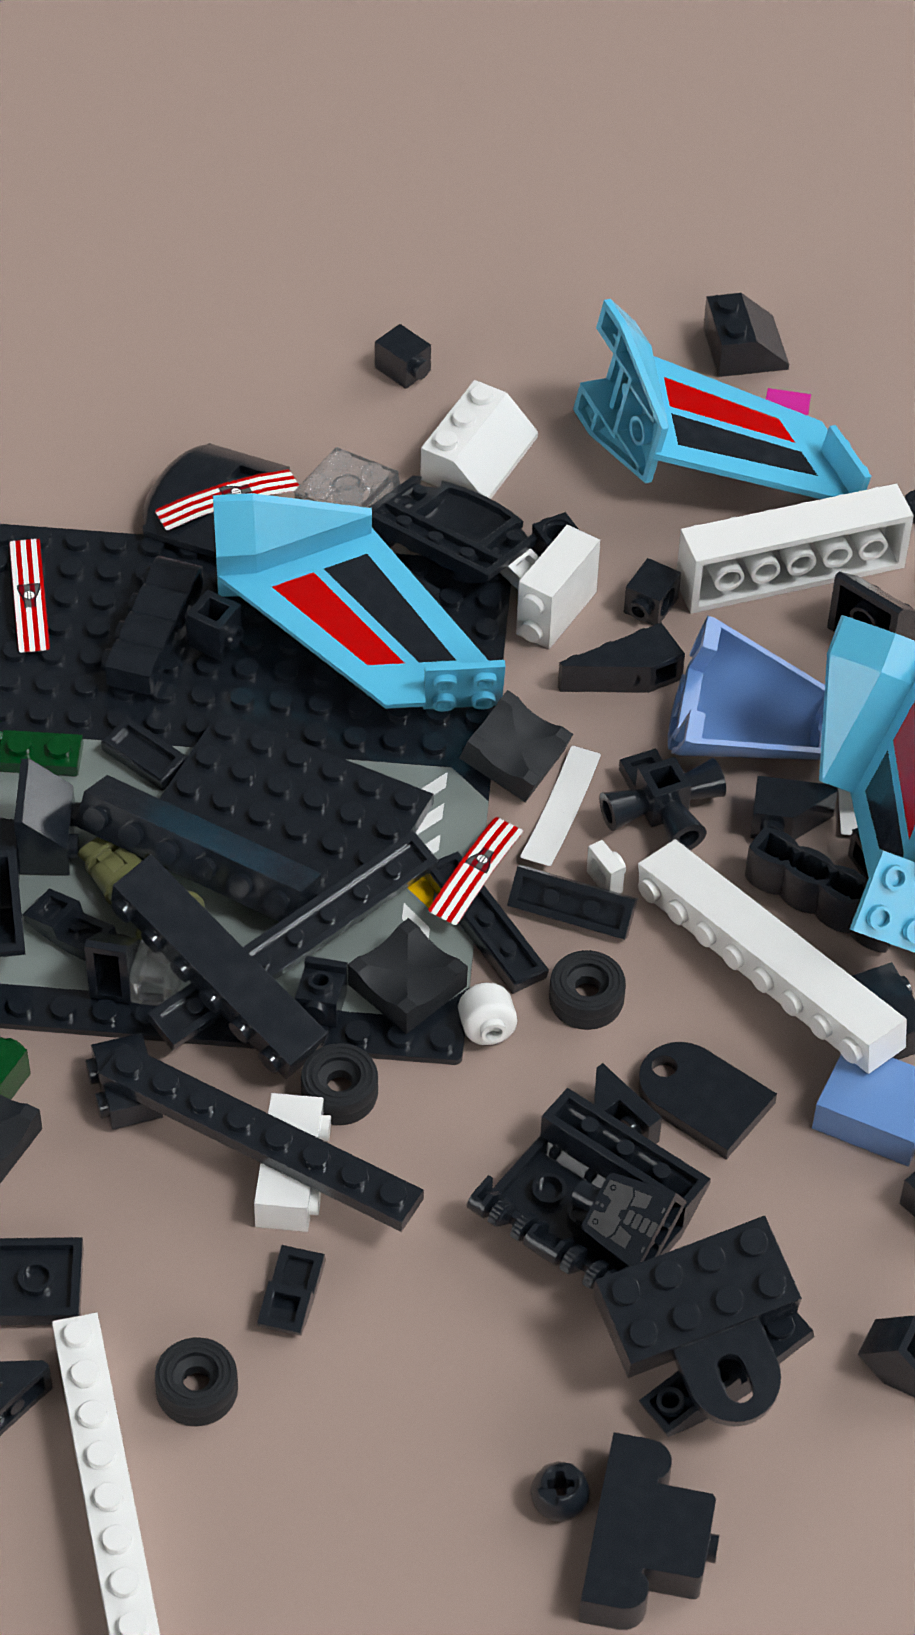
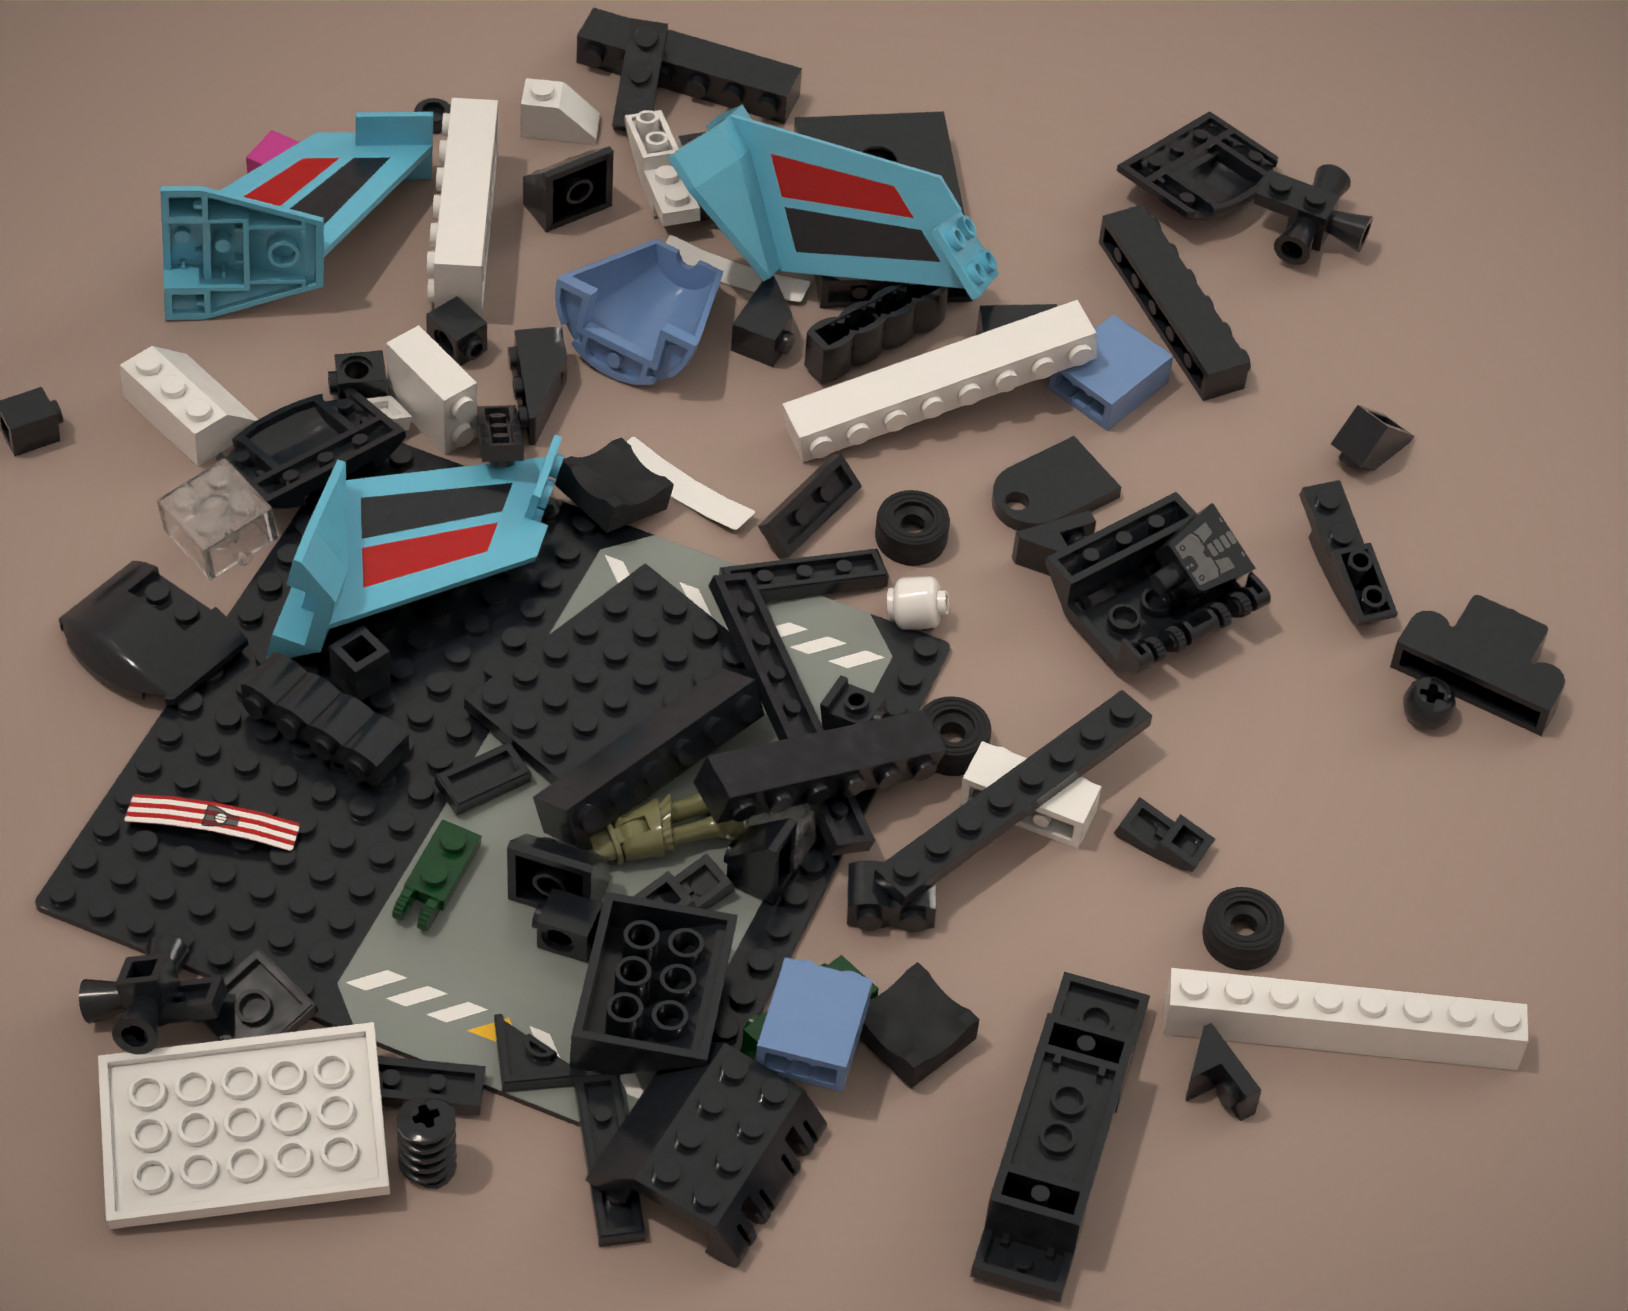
camera: 75 degrees left, 0 degrees up
(201, 502) = (175, 614): sticker -> none
(407, 976) = (860, 642): black brick -> none
(474, 870) = (746, 560): sticker -> none
(514, 638) = (499, 435): none -> black plate
(606, 867) = (781, 470): white plate -> none
(663, 795) = (715, 402): black brick -> none
(702, 1309) = (1319, 534): black brick -> none
(742, 336) = (144, 163): black slope -> none

